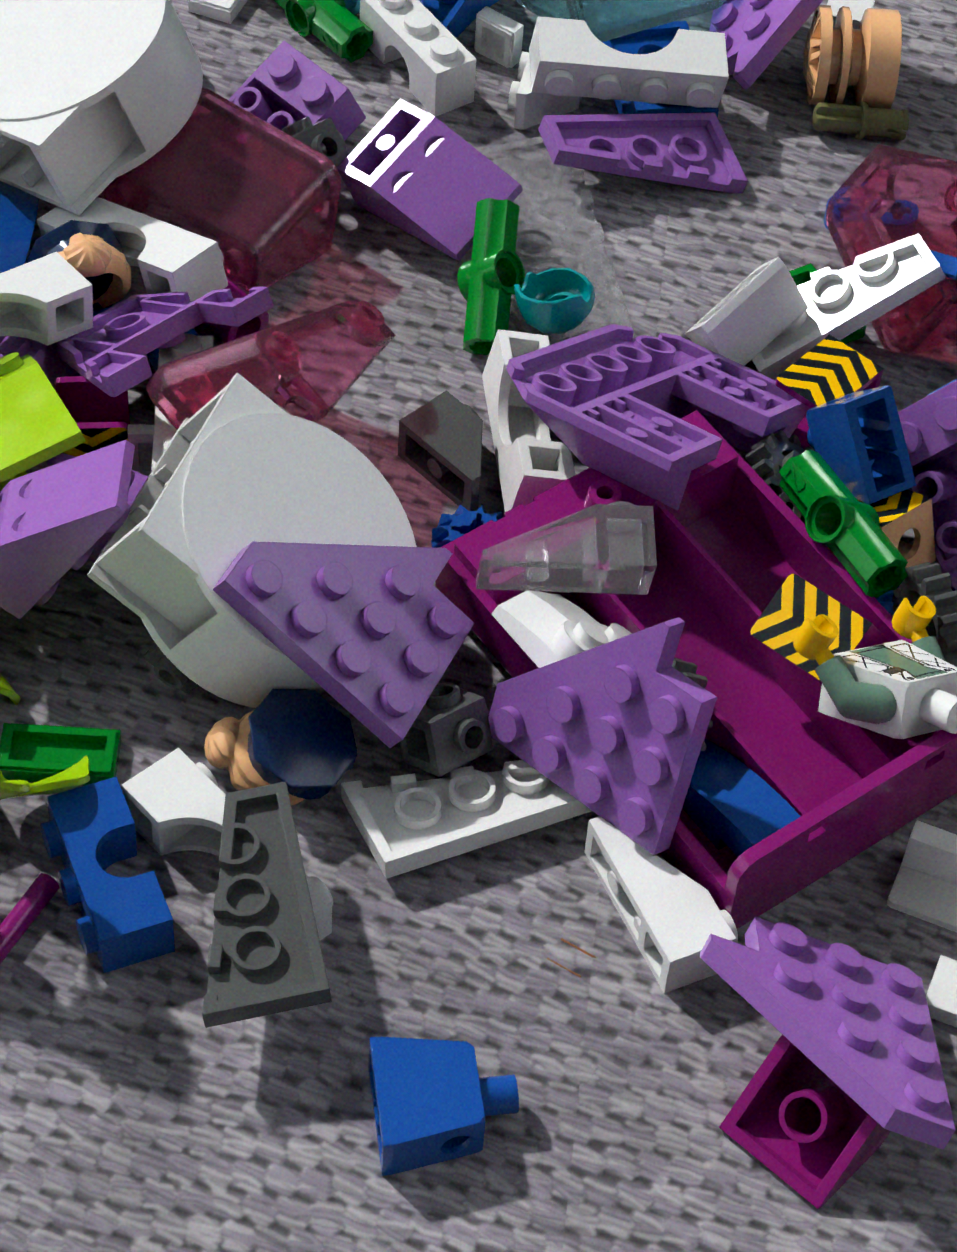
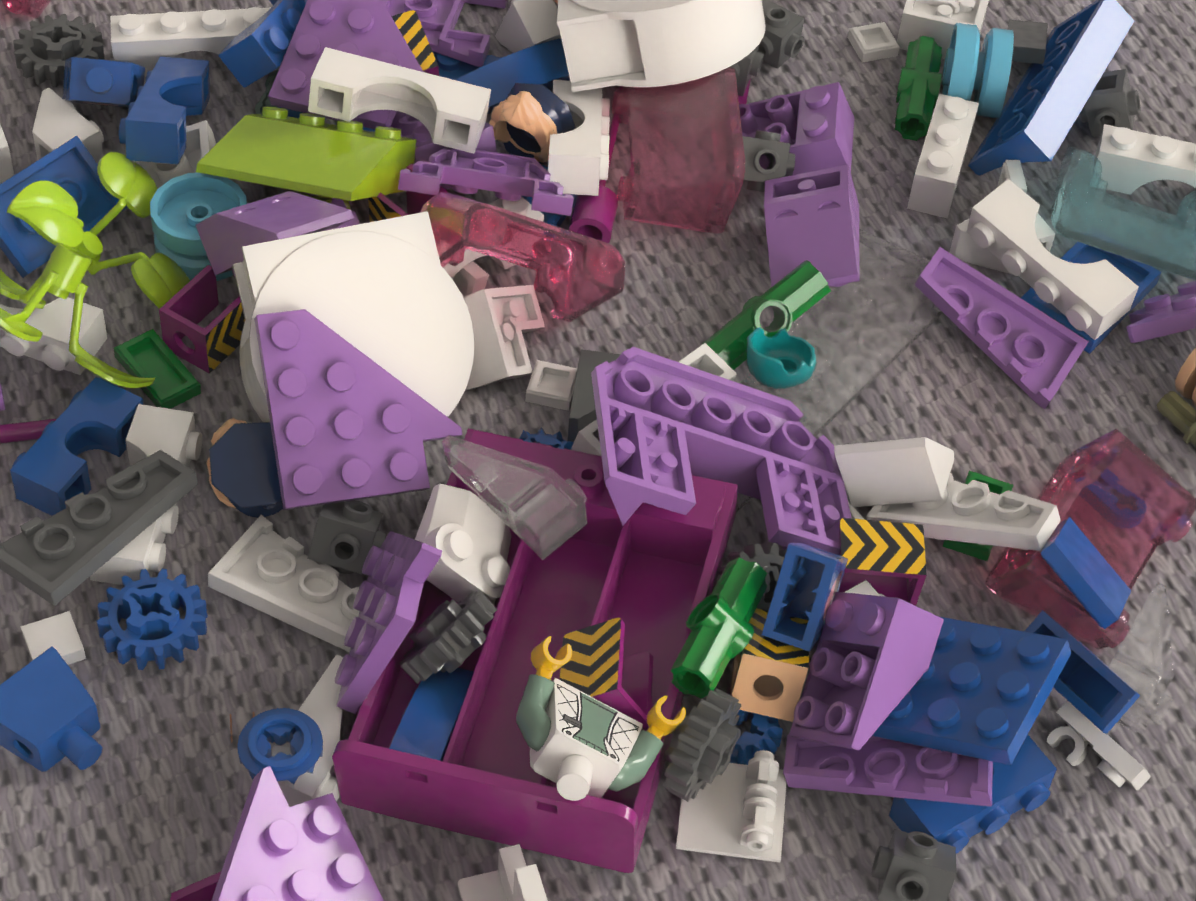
camera: 50 degrees right, 0 degrees up
(38, 692) = (191, 306): none -> magenta piece
(332, 1047) = (56, 632): none -> white tile
(385, 949) = (152, 619): none -> blue gear
(402, 472) = (551, 385): none -> white tile
(685, 905) = (279, 727): none -> blue gear

